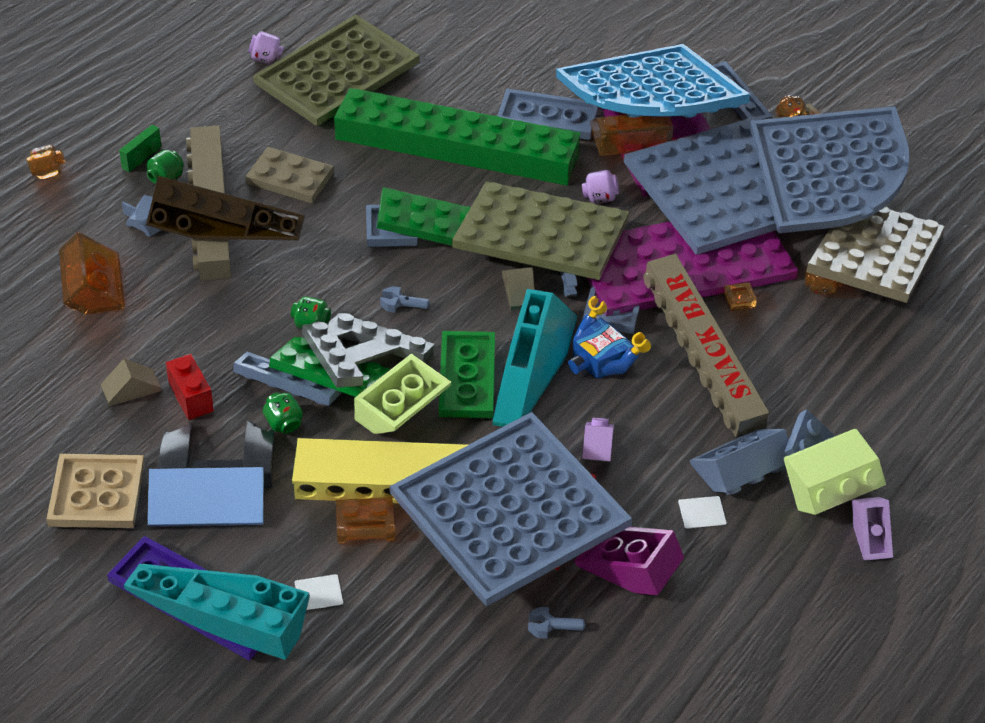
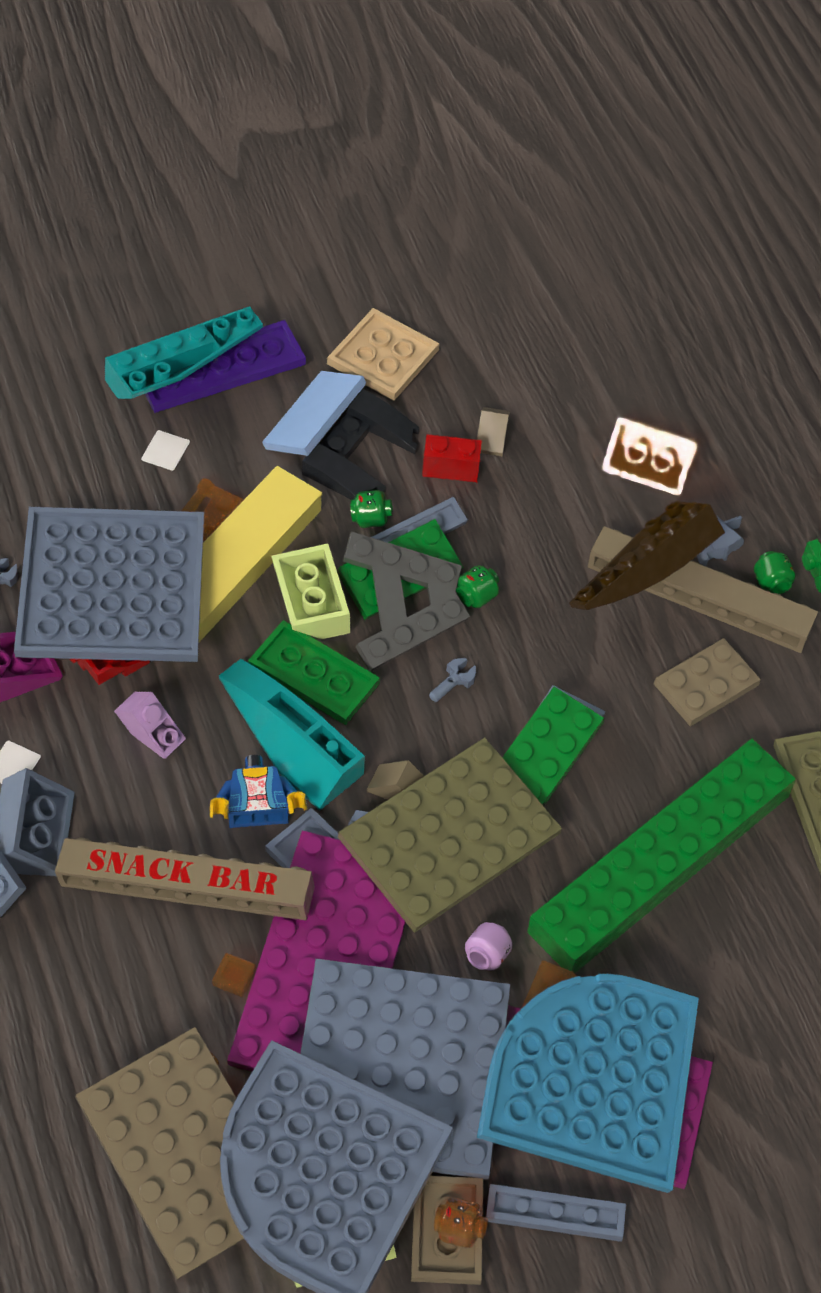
camera: 120 degrees right, 10 degrees up
(549, 111) = (666, 955): sand blue plate -> none

